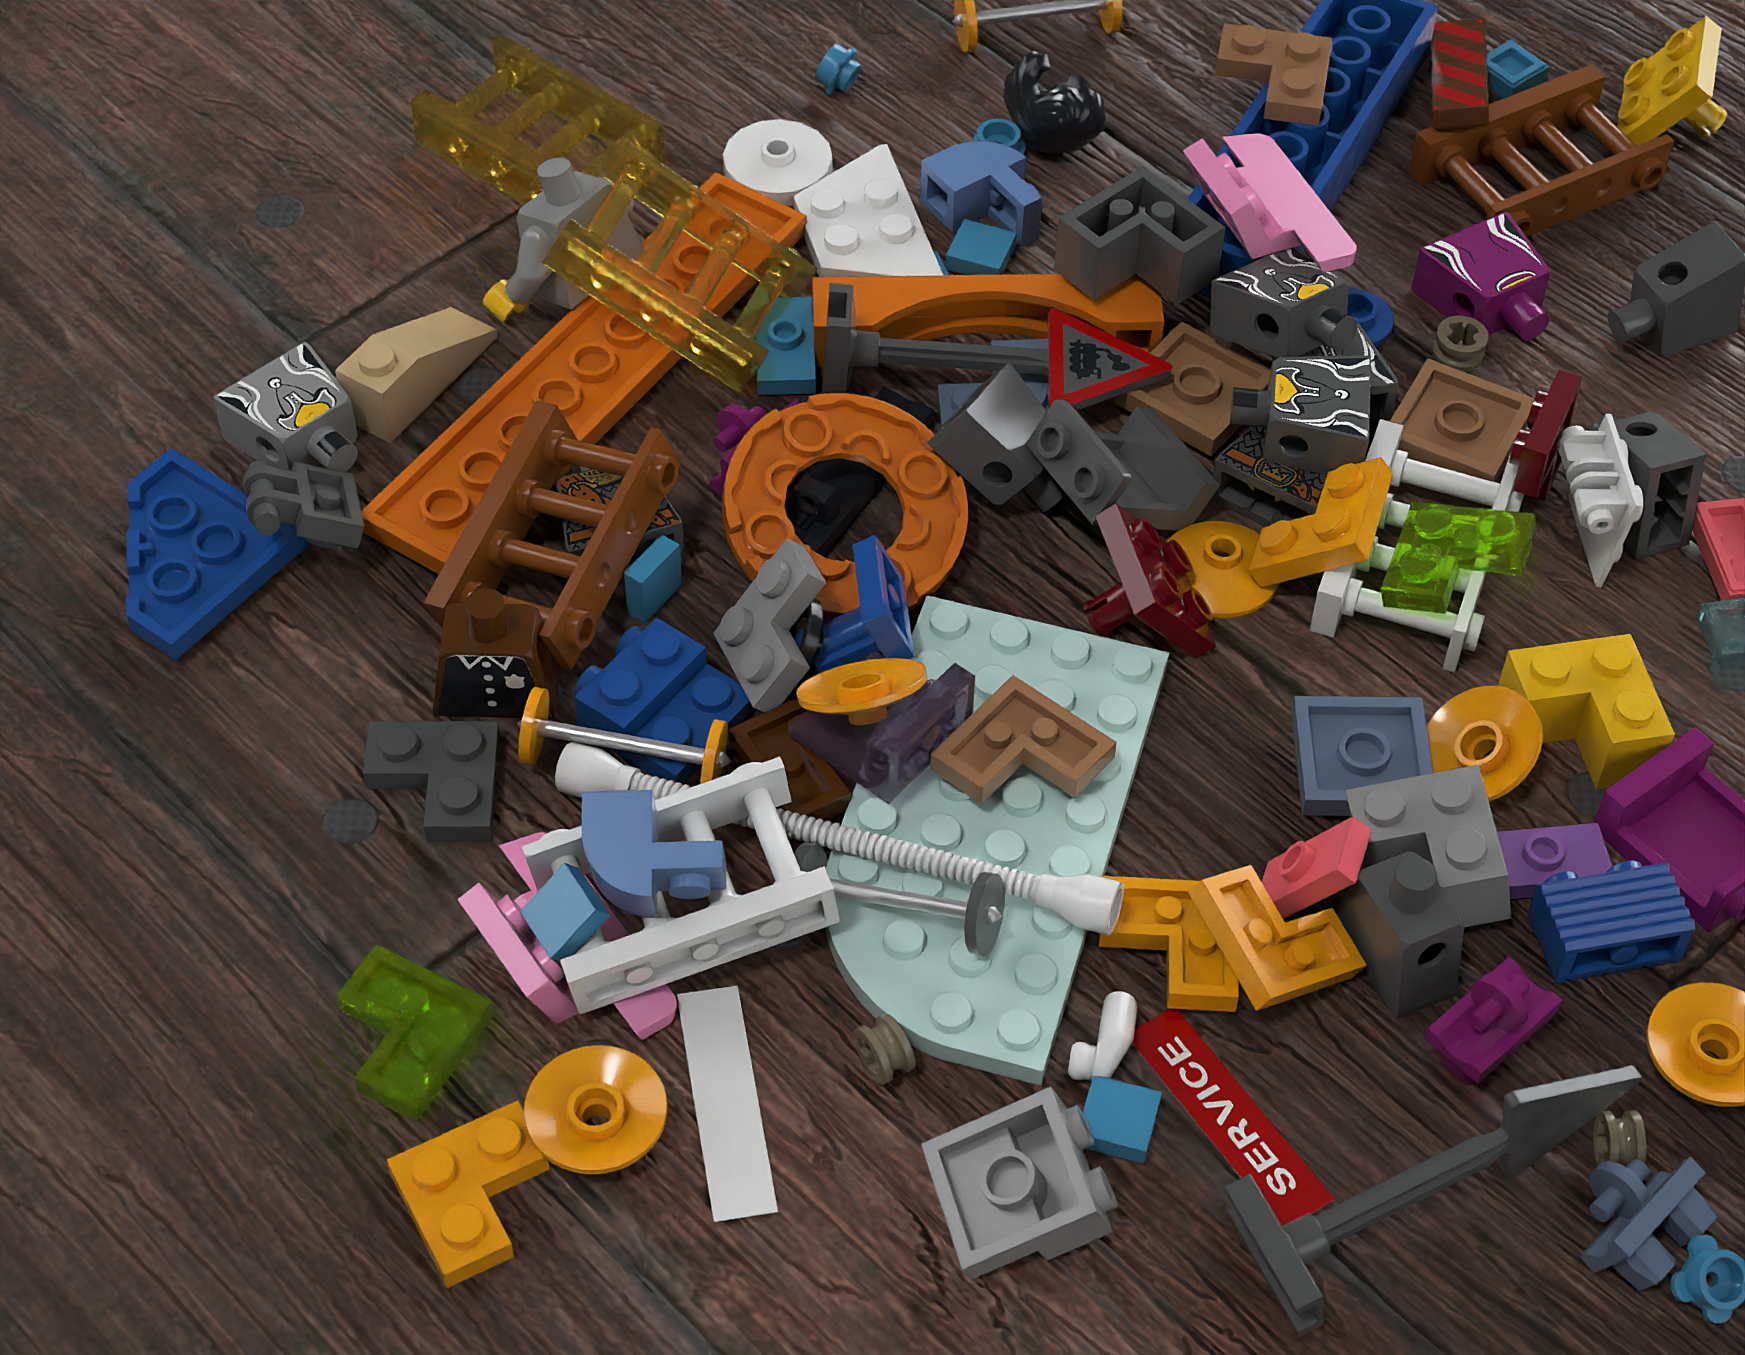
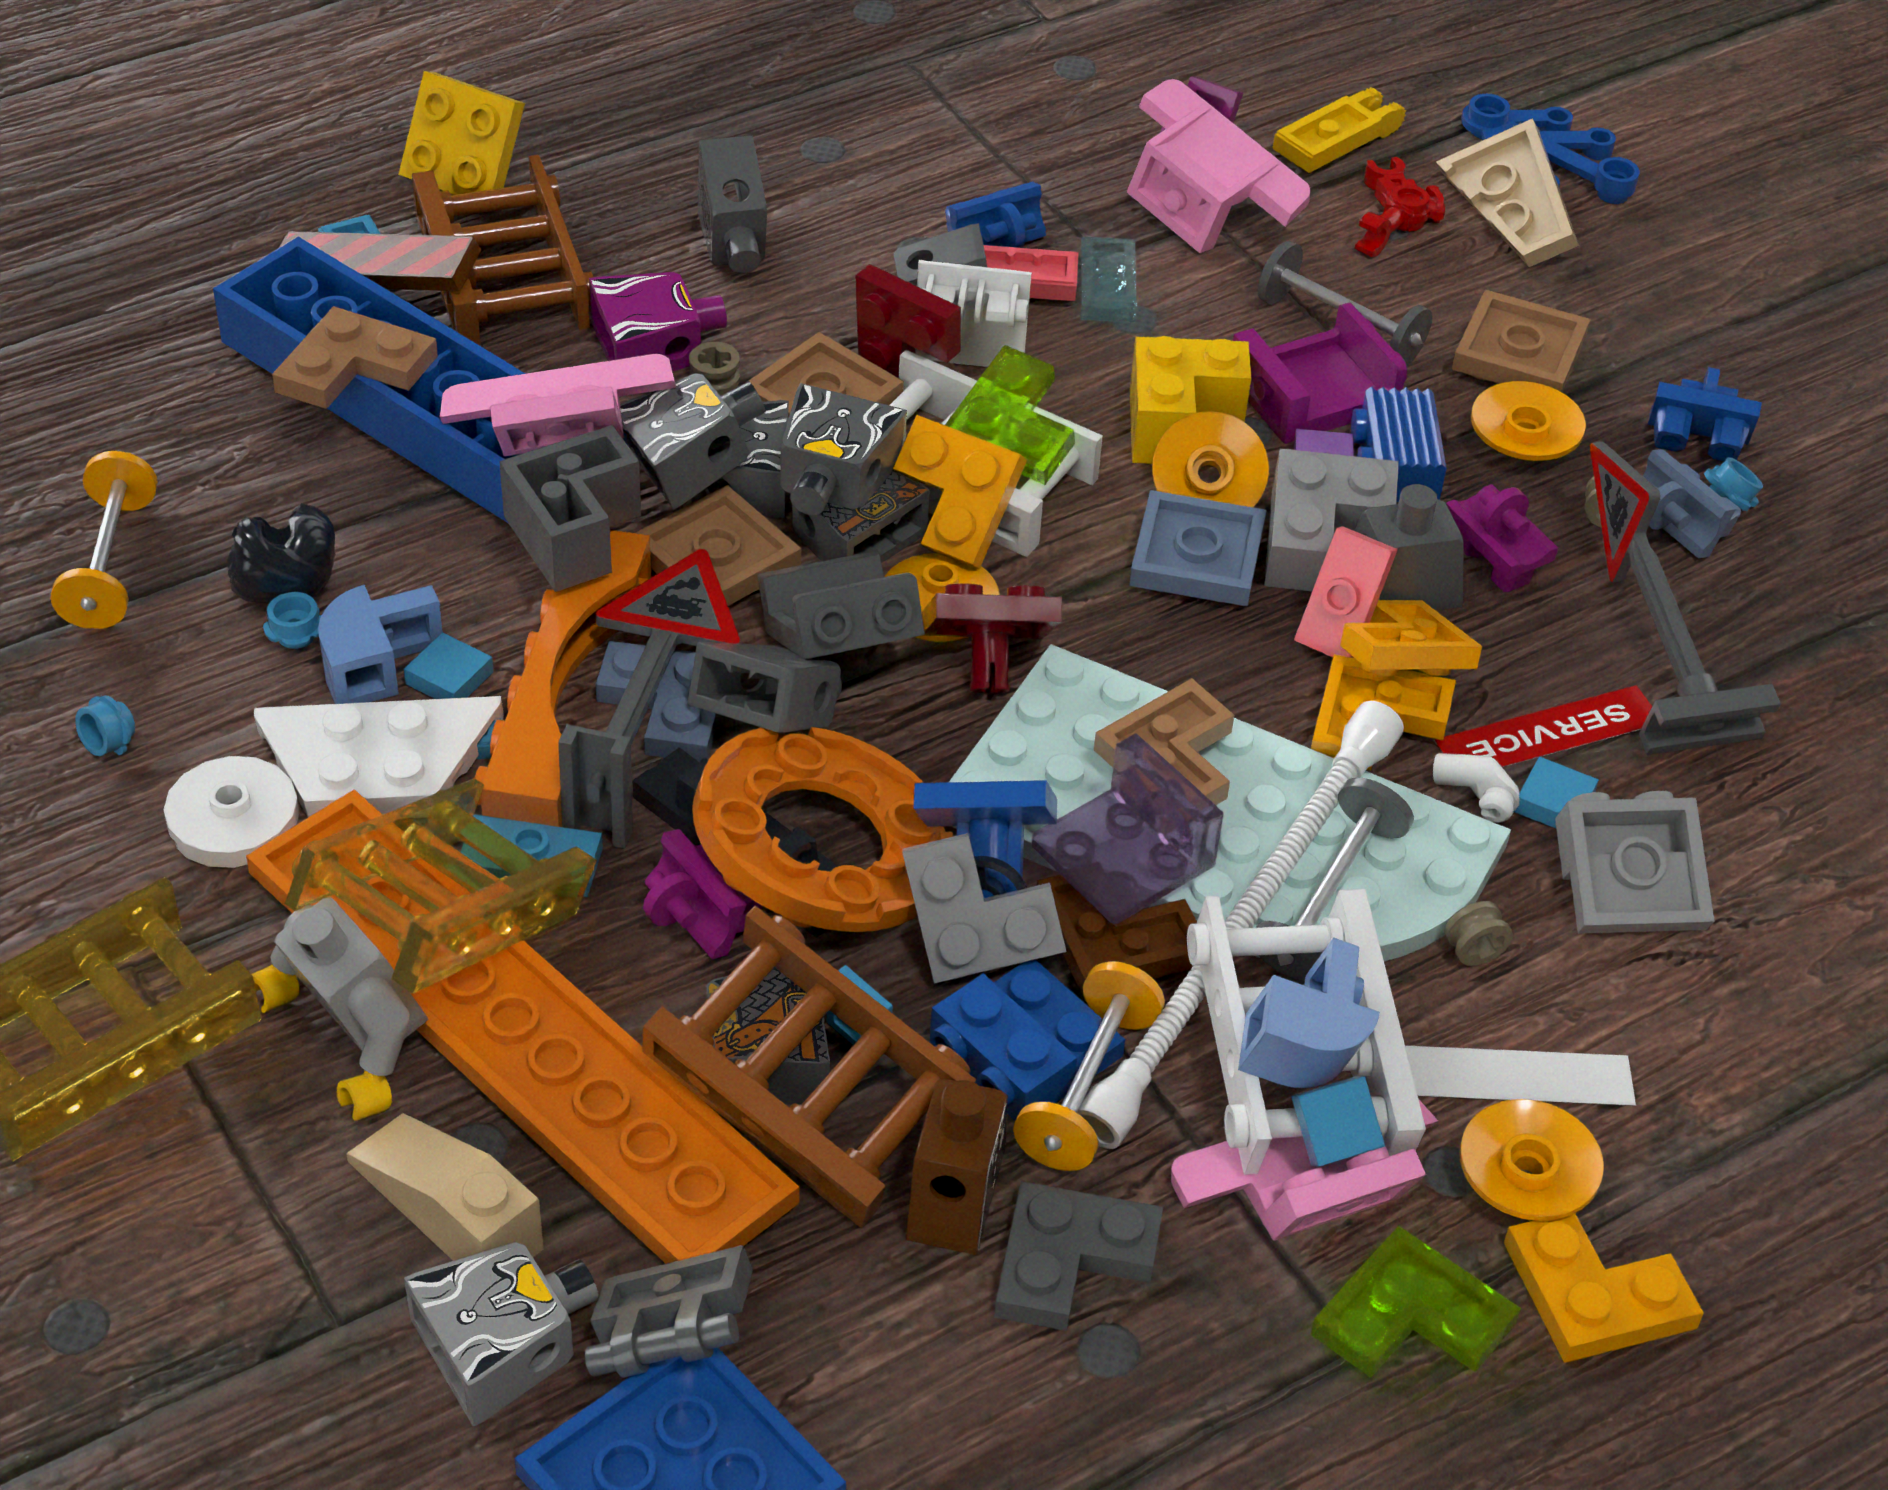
camera: 80 degrees left, 5 degrees down
(862, 688) = (1108, 831): light orange dish -> none

